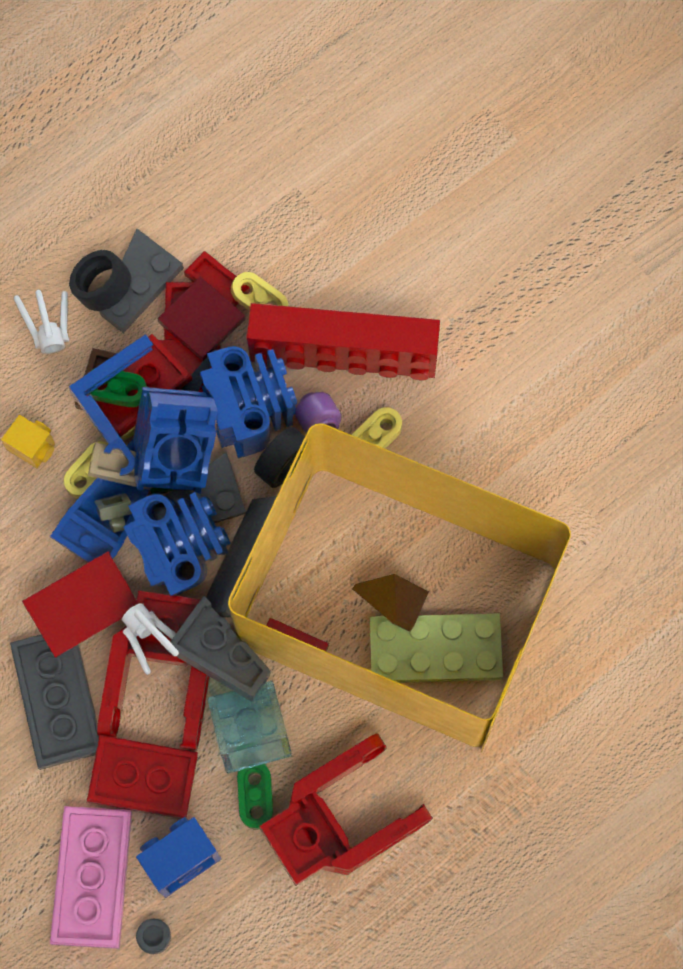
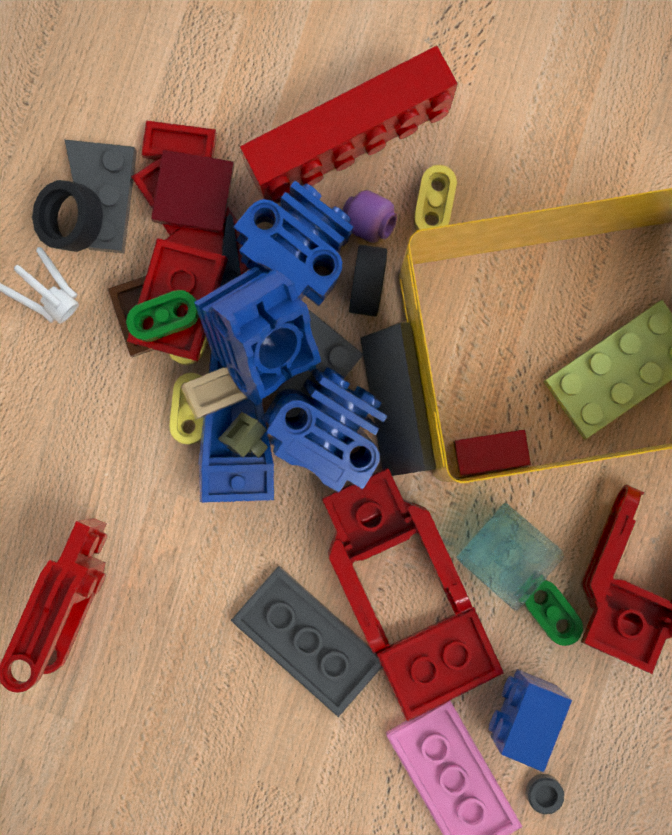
camera: 30 degrees left, 15 degrees up
(29, 441) = (112, 418): yellow brick -> none
(80, 604) = (274, 545): red tile -> none
(98, 377) = (158, 355): blue hinge -> none
(143, 623) = (351, 528): white plant -> none
(218, 652) = (440, 511): dark grey wing -> none
(260, 291) = (232, 131): light yellow plate -> none
(394, 599) = (563, 352): reddish brown slope -> none

